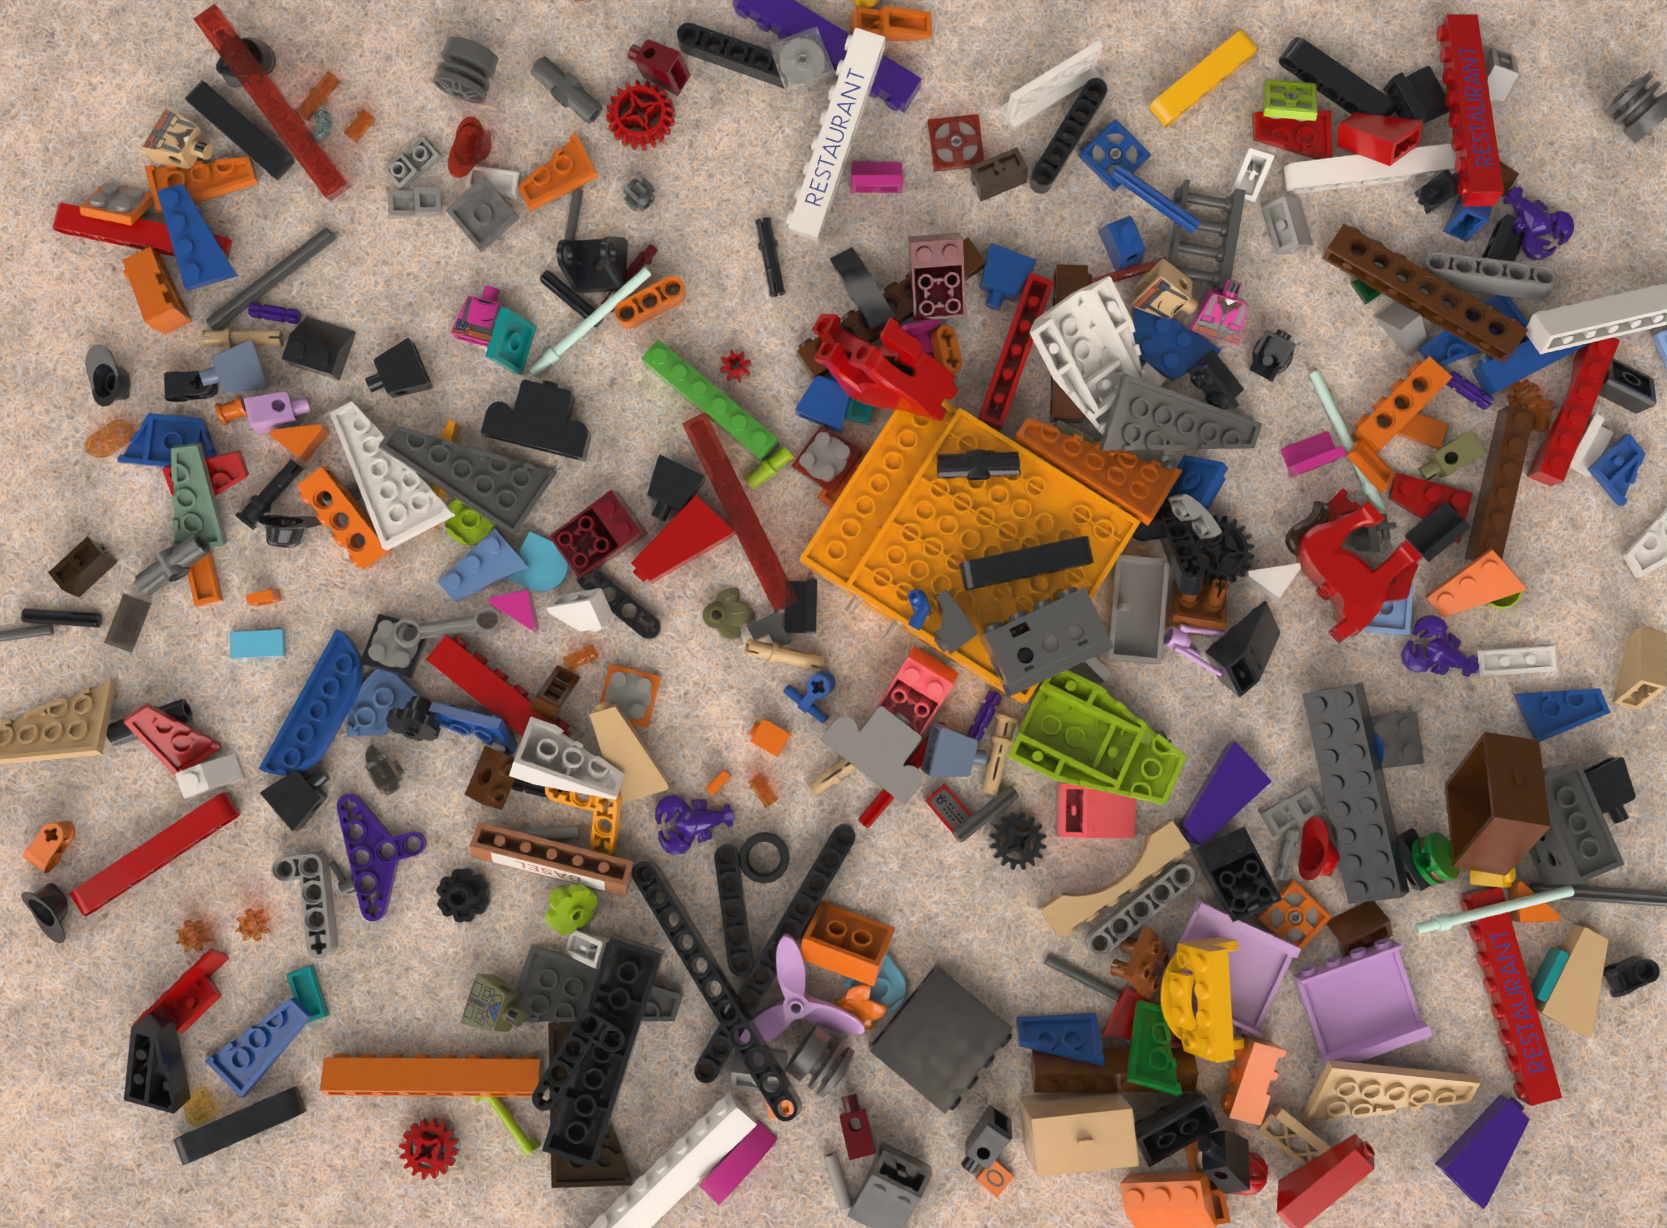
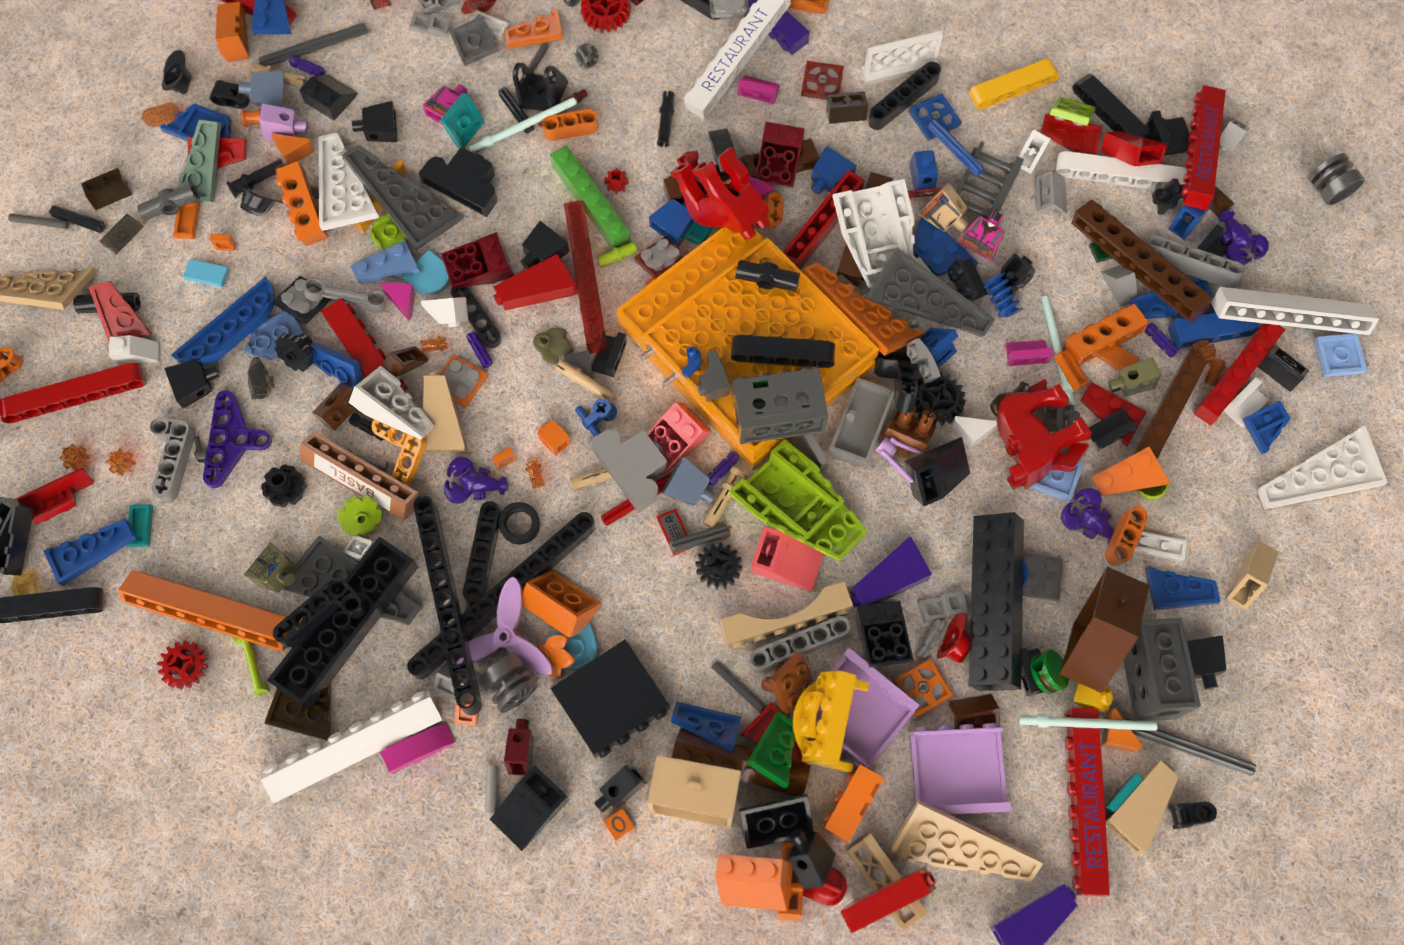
camera: 20 degrees right, 15 degrees down
(638, 646) = (479, 349): none -> dark purple axle
(1266, 391) = (1002, 296): none -> blue piece
(1495, 656) = (1132, 529): none -> orange beam

